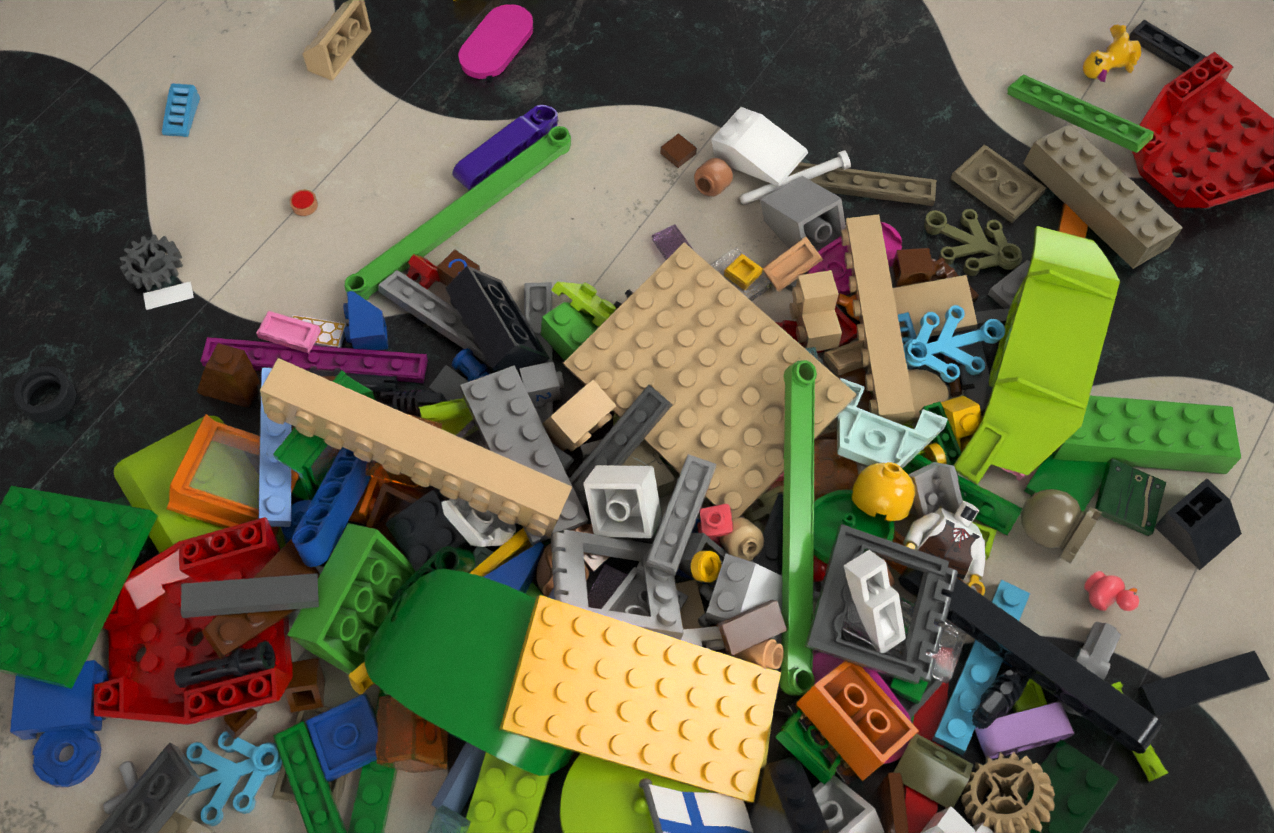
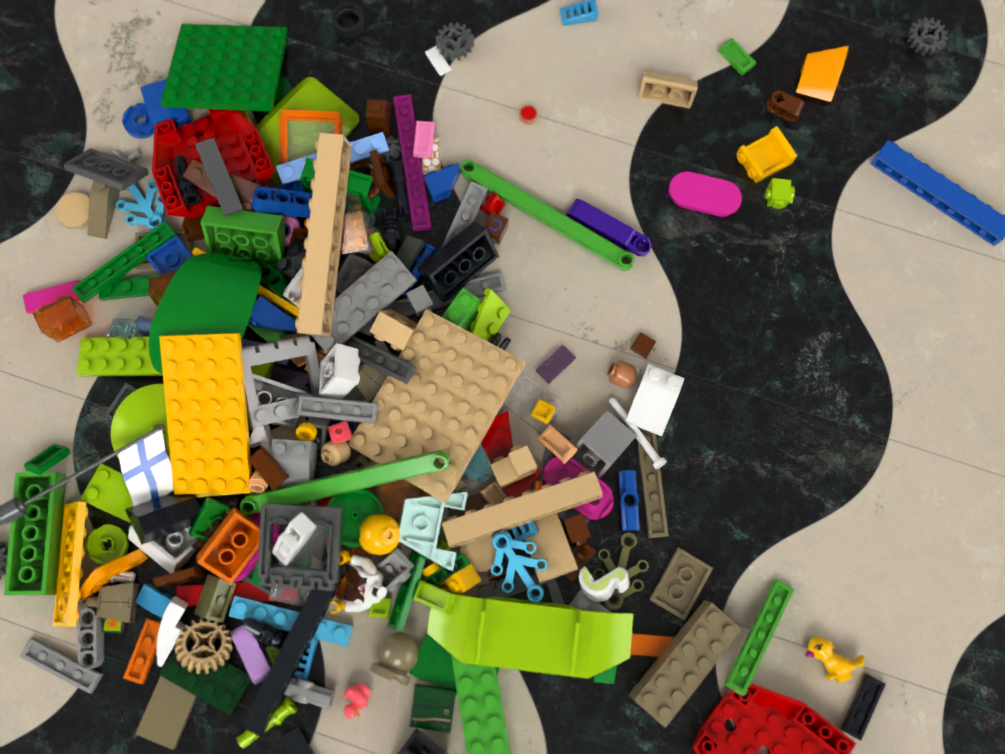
camera: 75 degrees right, 15 degrees up
(886, 205) = (628, 487): none -> blue piece
(999, 260) = (603, 587): none -> white animal

